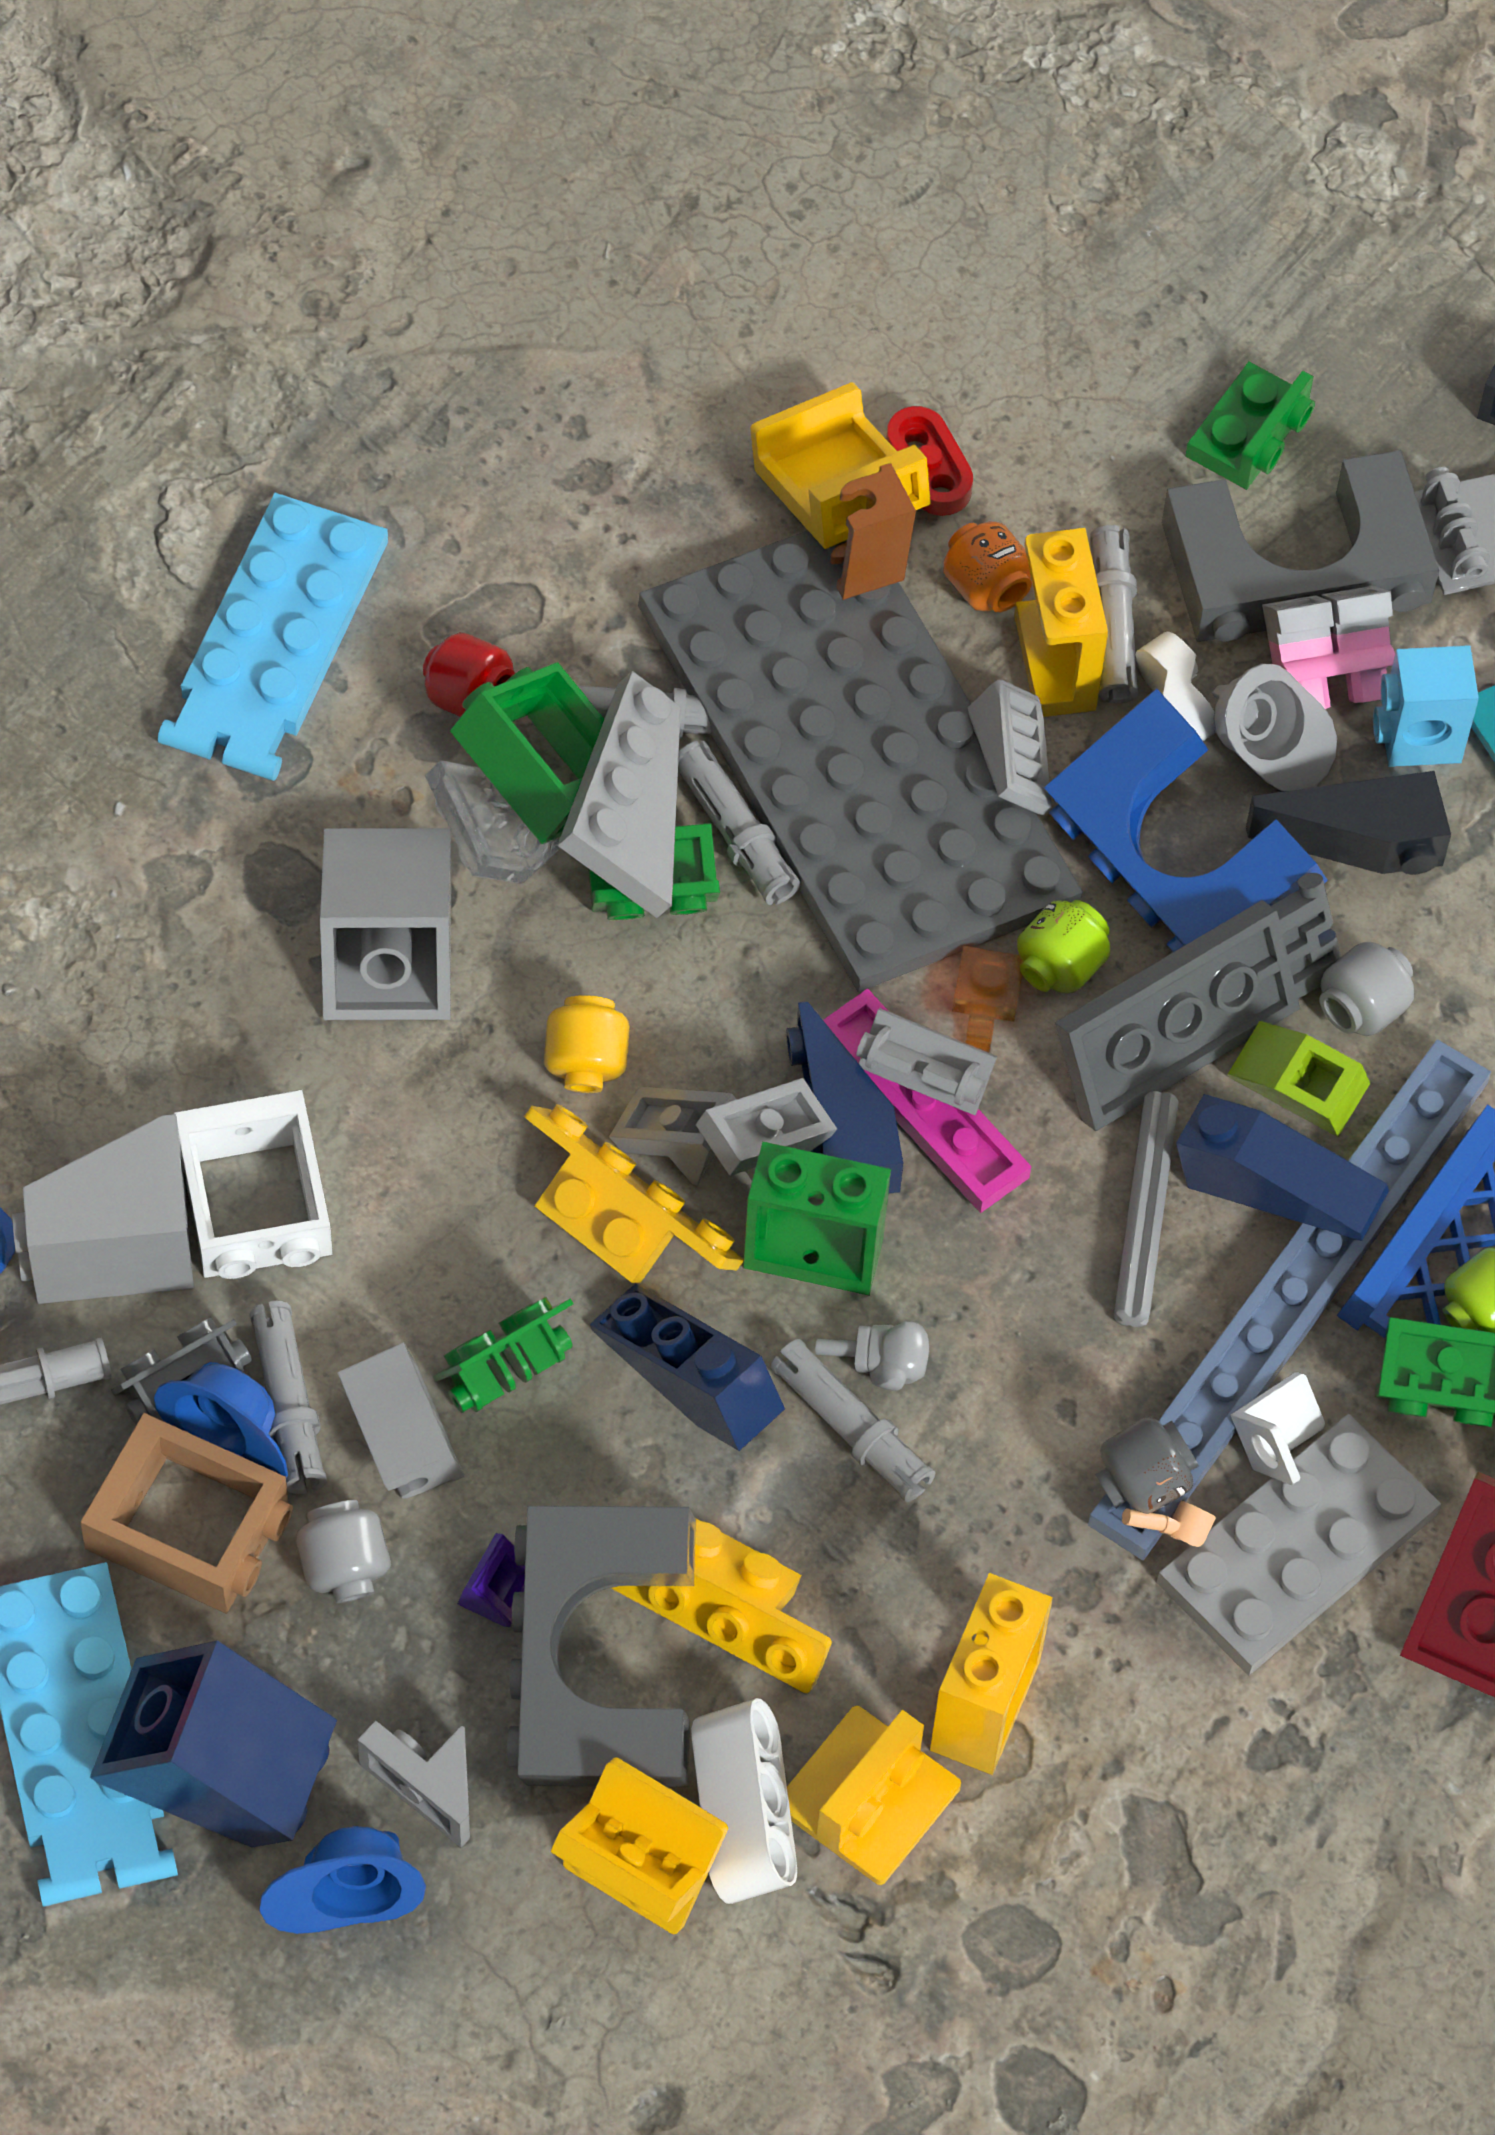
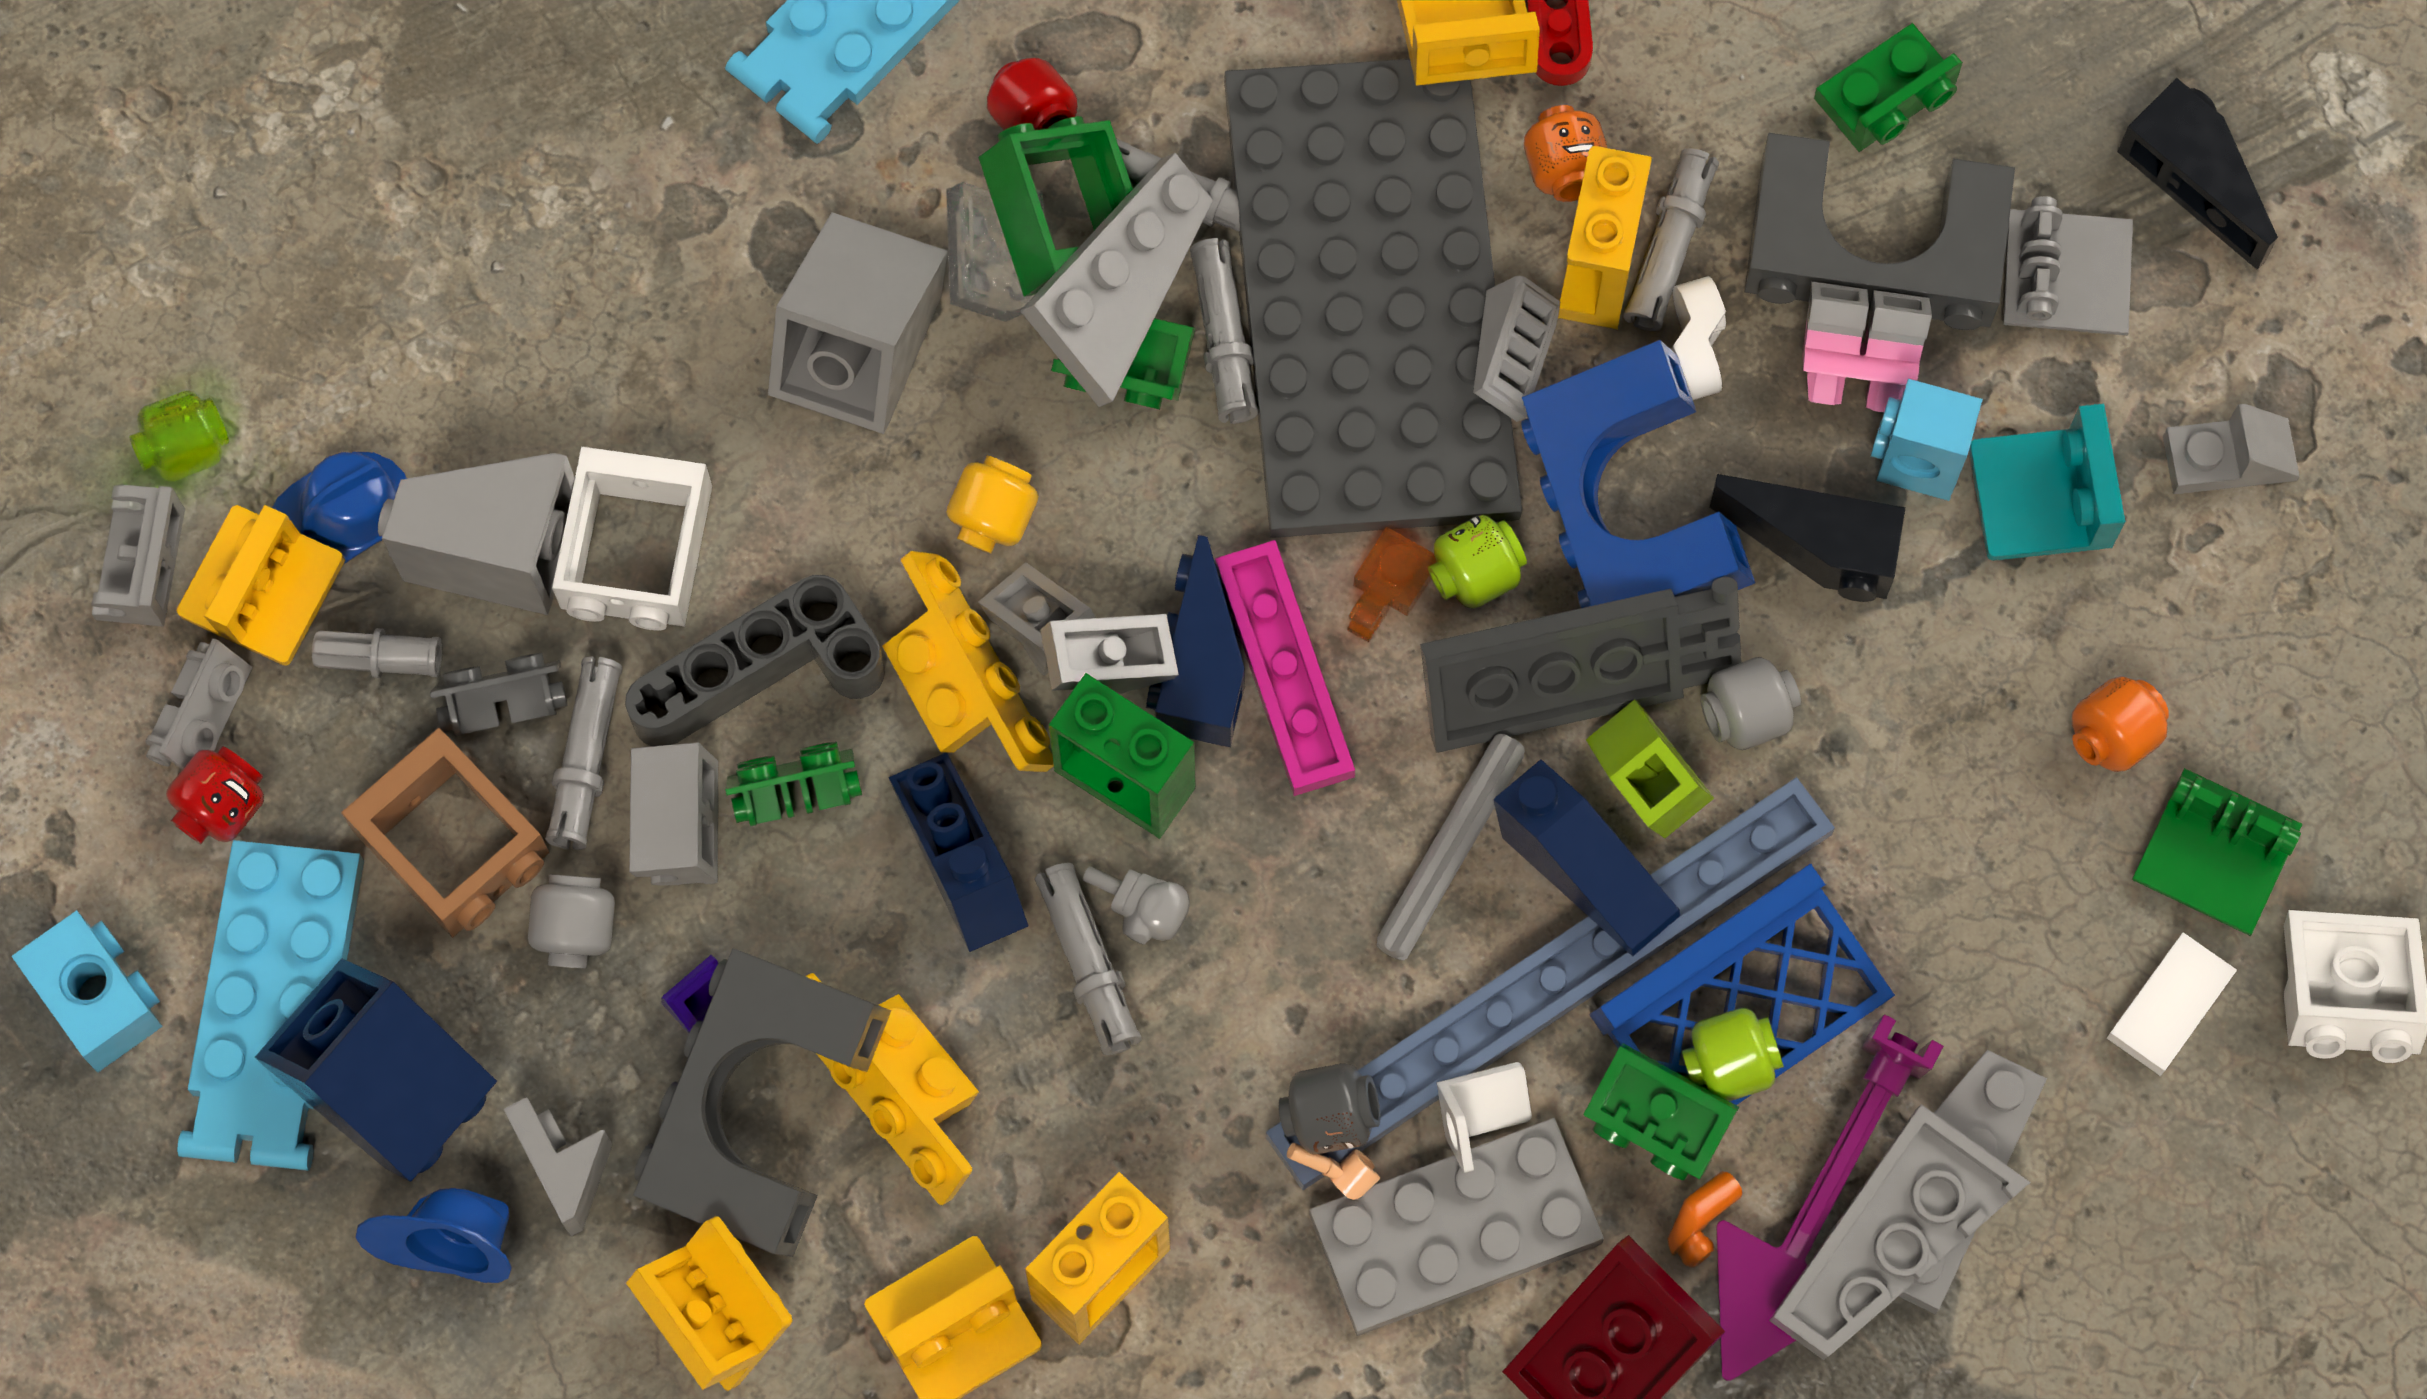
camera: 25 degrees right, 10 degrees up
(224, 1410) = (518, 749): blue piece -> none
(420, 1267) = (753, 672): none -> dark grey beam
(745, 1787) = (833, 1291): white beam -> none
(877, 535) = (1456, 101): dark orange hinge -> none
(926, 1061) = (1292, 634): light grey hinge -> none
(1276, 727) = (1774, 411): light grey piece -> none

